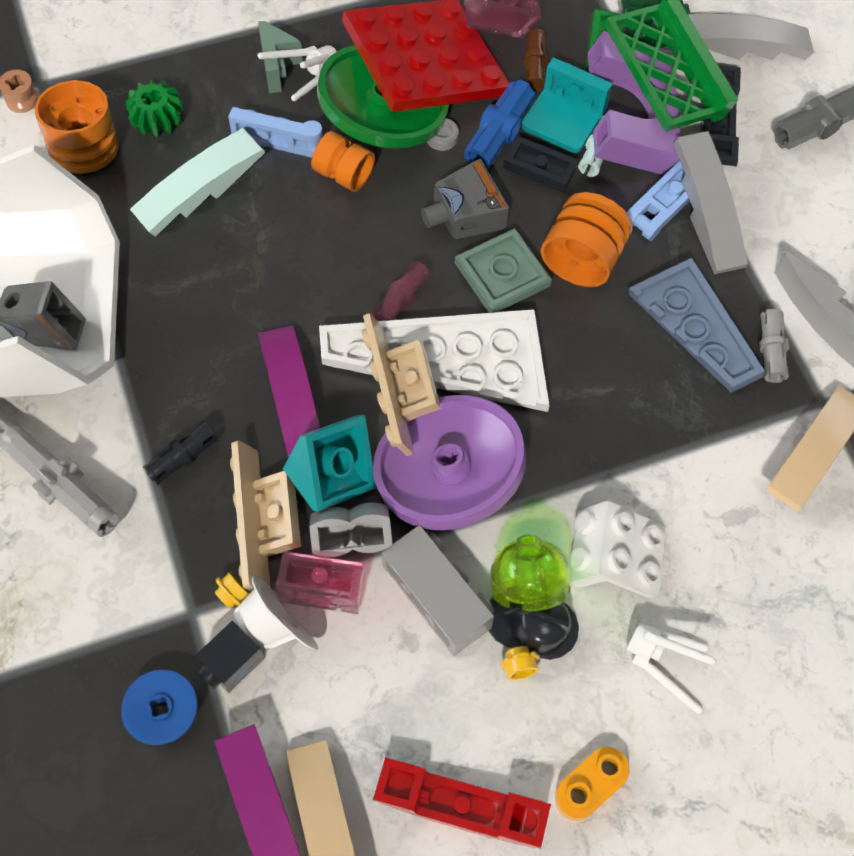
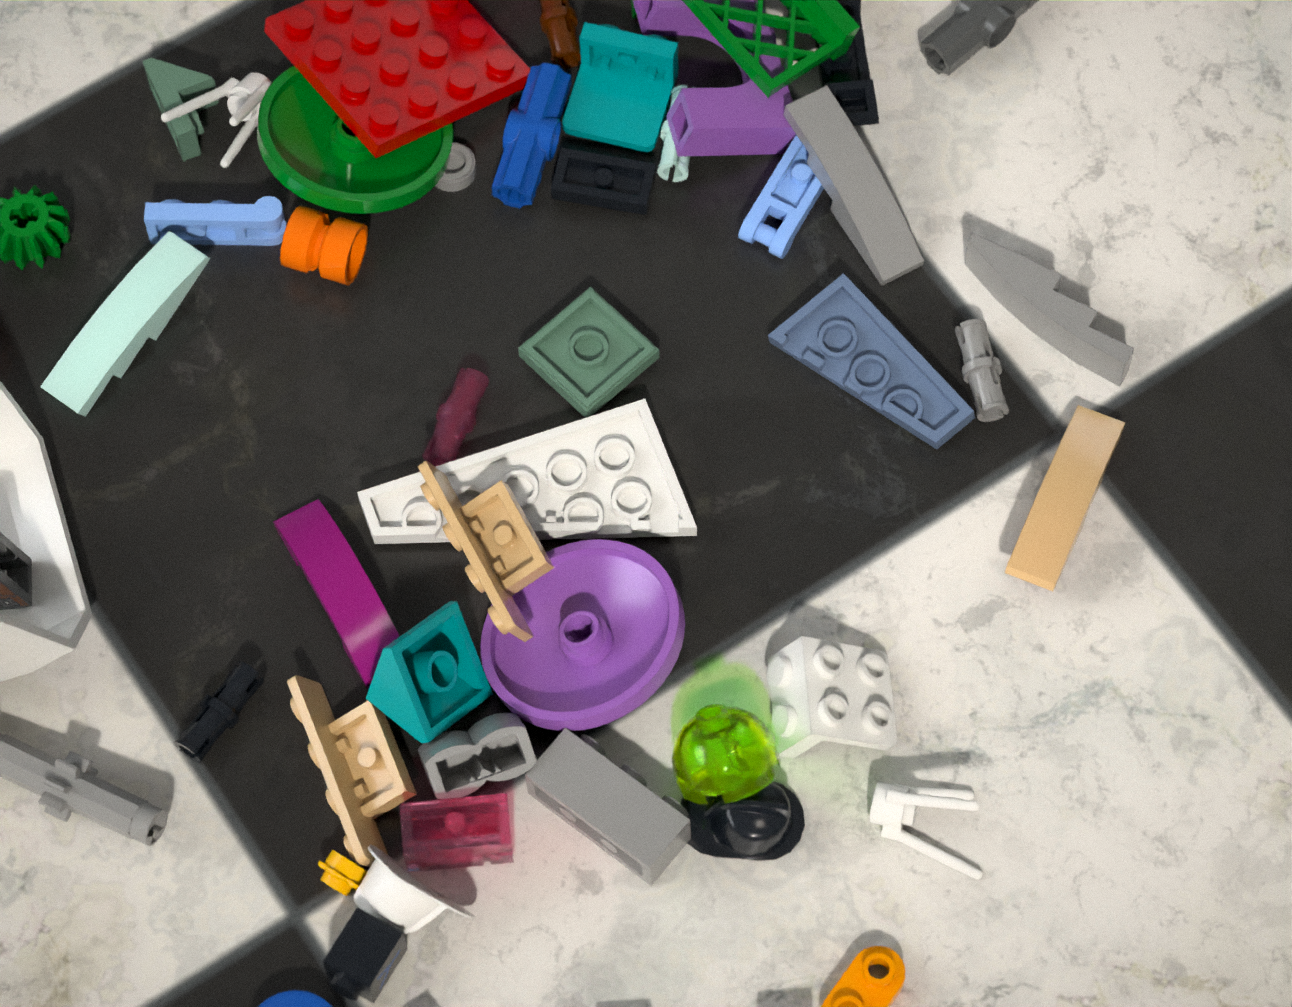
camera: 10 degrees left, 0 degrees up
(467, 203) = (515, 265): dark grey torso -> none
(520, 663) = (738, 872): yellow plate -> none
(586, 239) = (693, 283): orange wheel -> none

